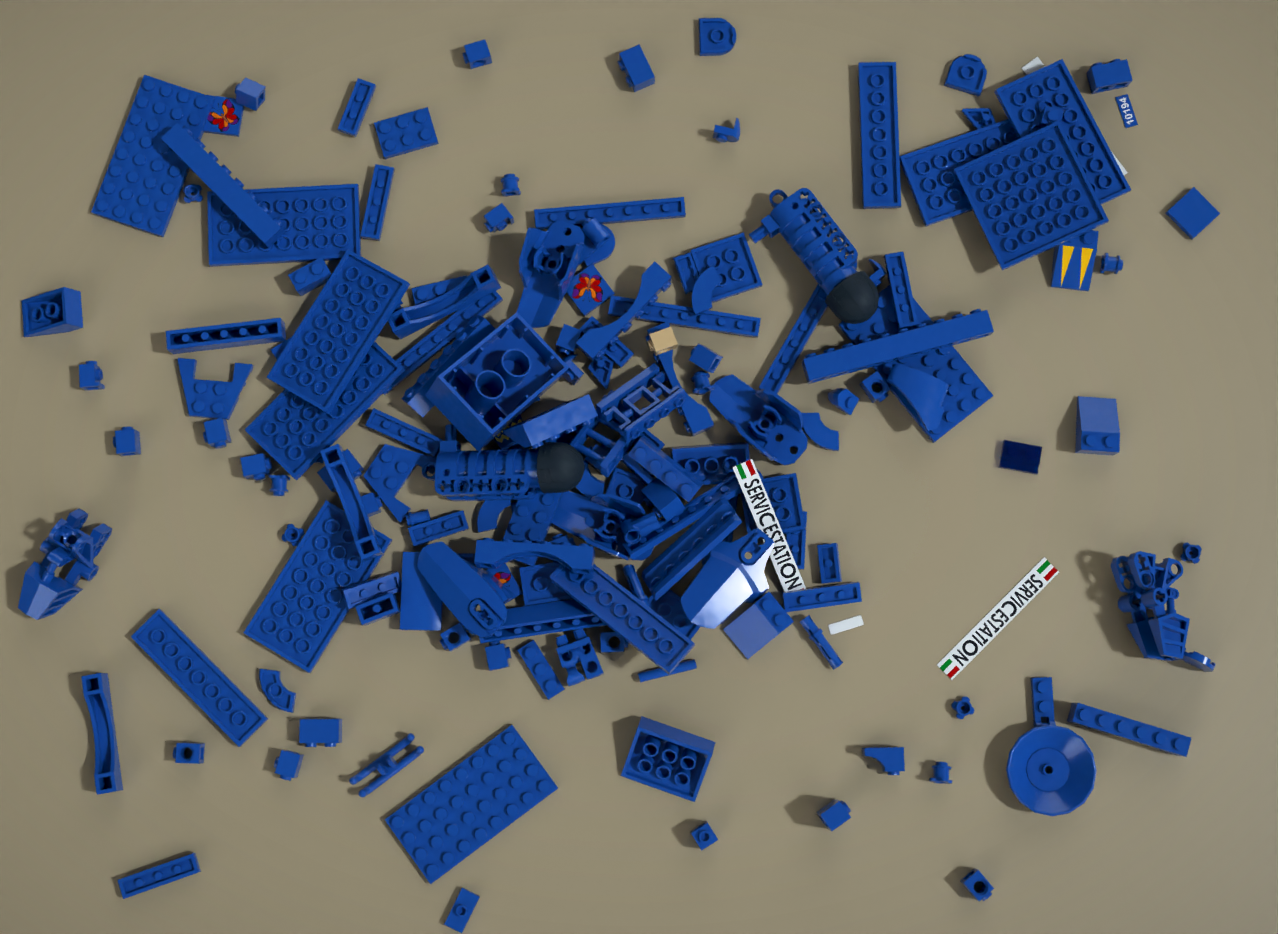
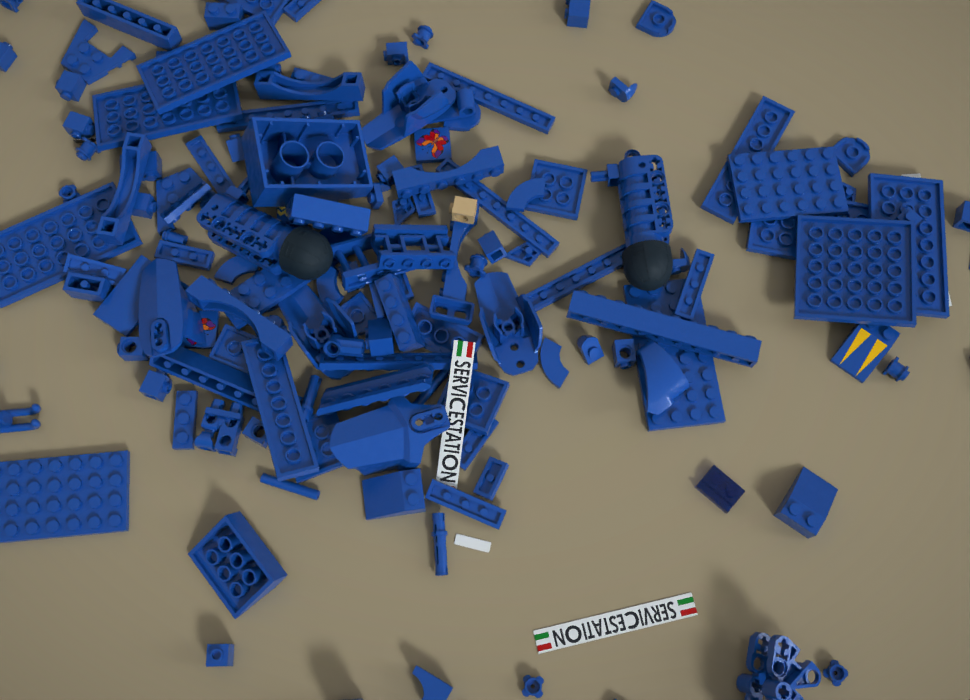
camera: 30 degrees right, 10 degrees down
(408, 480) = (186, 202): none -> blue plate
(686, 271) = (521, 173): blue plate -> none
(705, 435) = (452, 306): none -> blue piece
(735, 346) = (524, 254): none -> blue piece
(927, 142) = (786, 184): none -> blue plate

